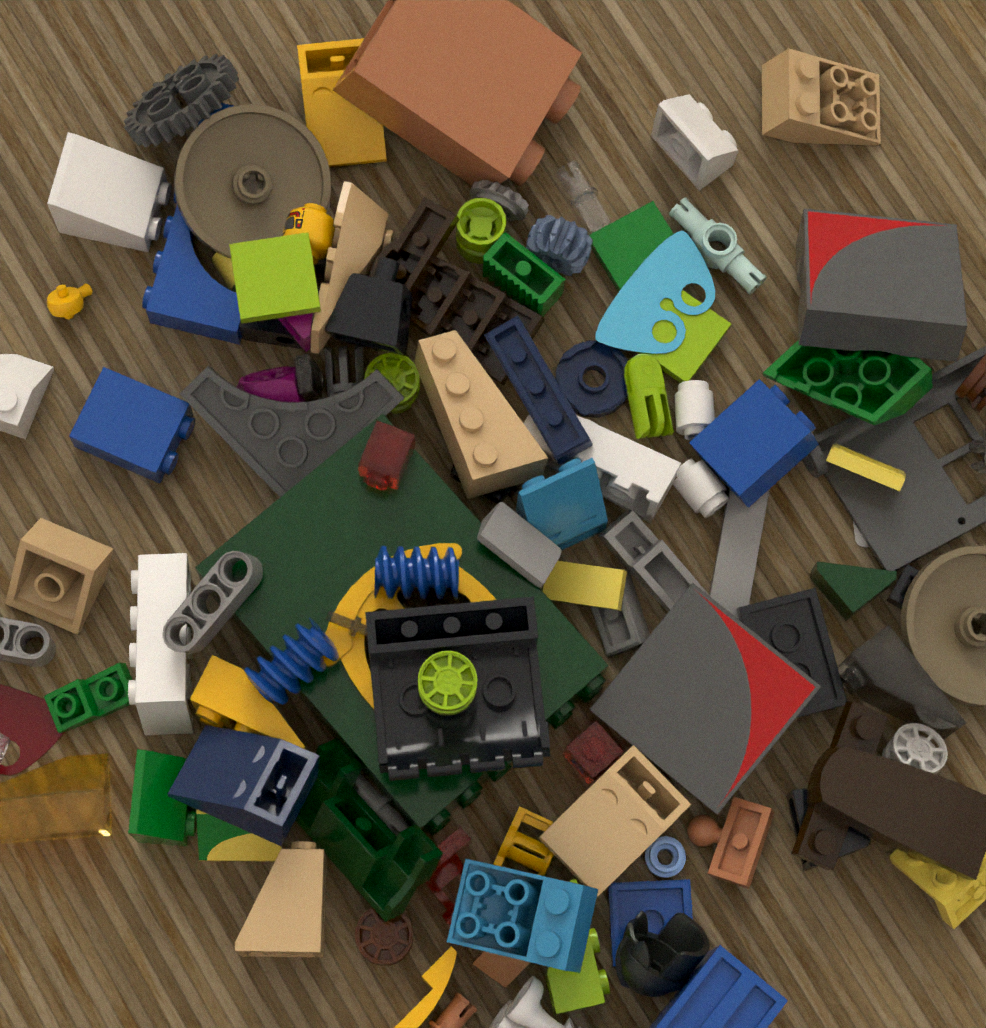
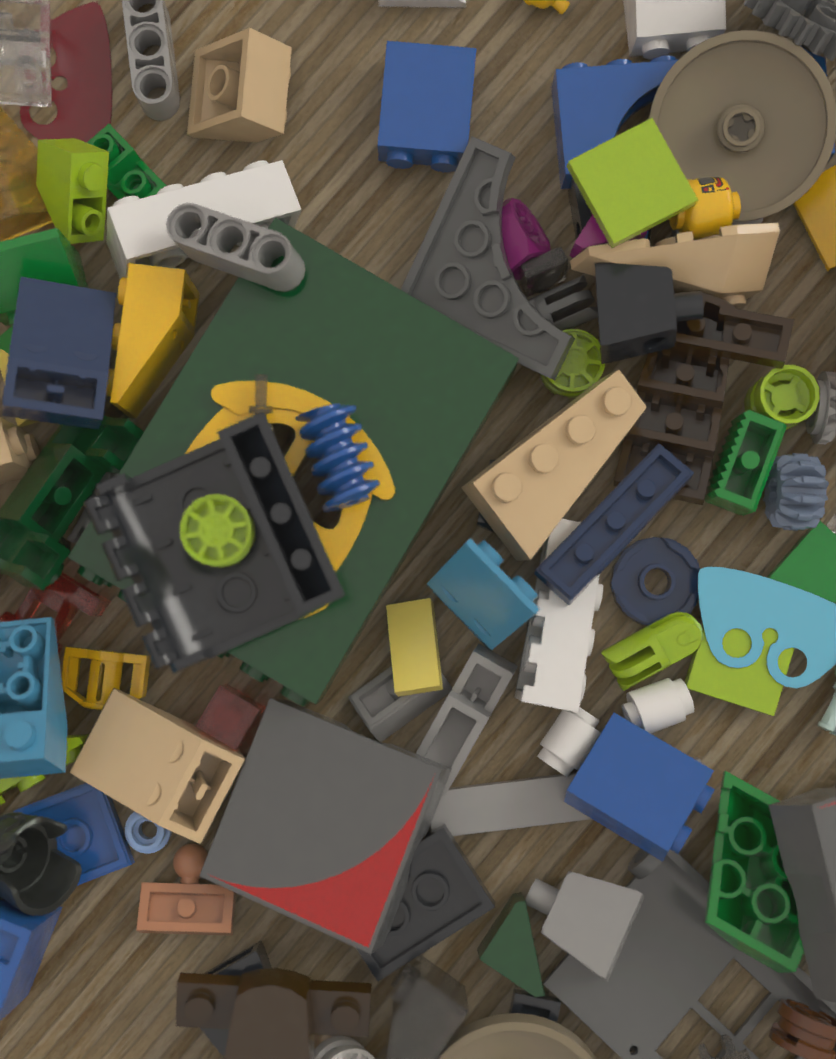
camera: 75 degrees right, 10 degrees up
(91, 738) = (74, 187): none -> lime slope
(293, 663) = (194, 355): blue piece -> none
(386, 456) = (464, 377): clear red brick -> none
(519, 544) = (417, 559): light grey slope -> none
(847, 519) = (587, 918): none -> light grey torso
(866, 466) = (656, 923): light yellow tile -> none

